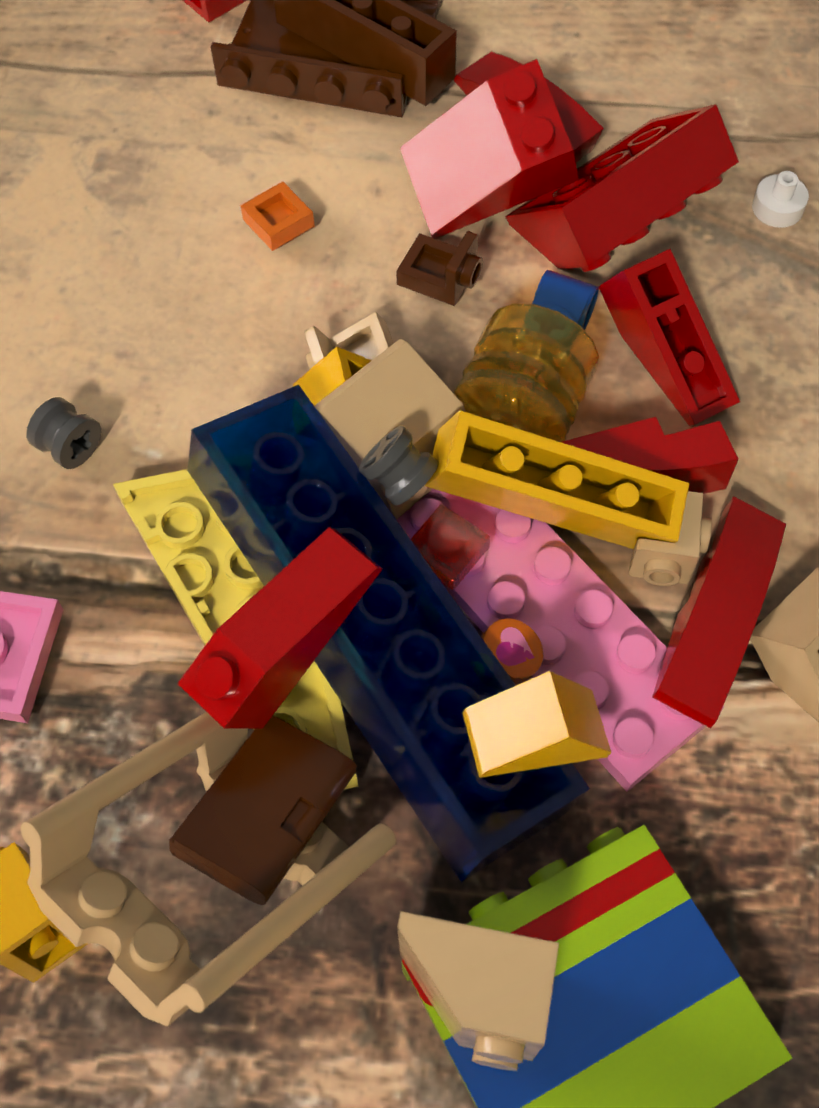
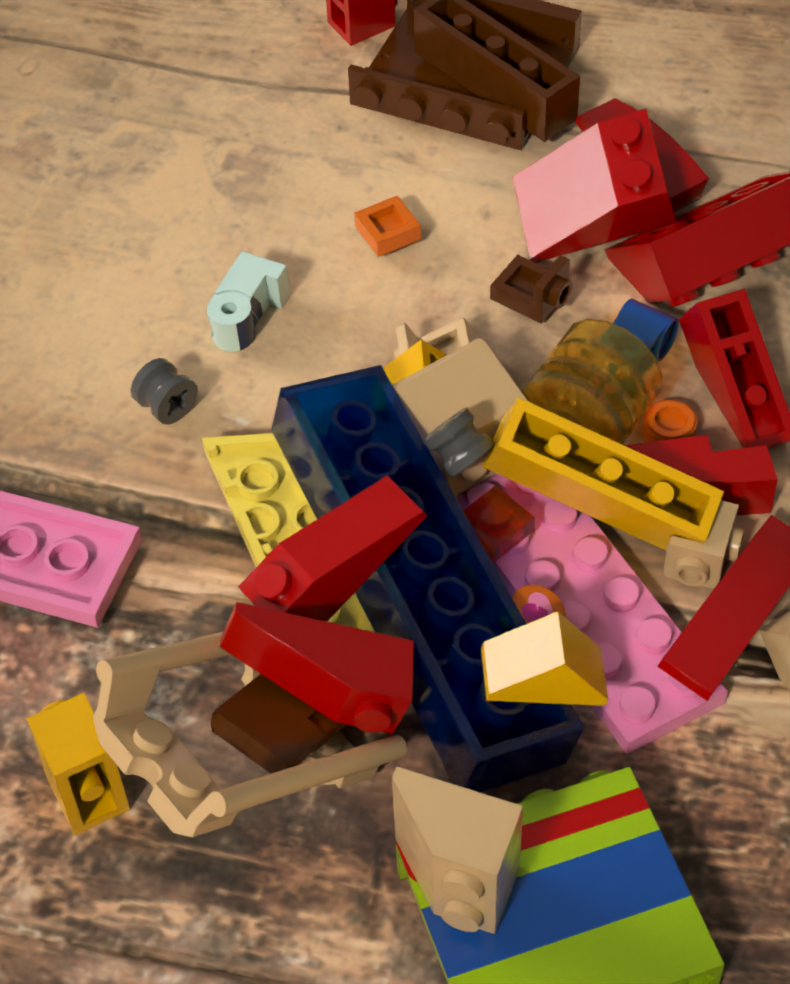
camera: 10 degrees right, 10 degrees down
(135, 316) = (243, 299): none -> light aqua leg
(302, 766) = (332, 667): none -> red slope
(607, 404) = (669, 421): none -> orange tile

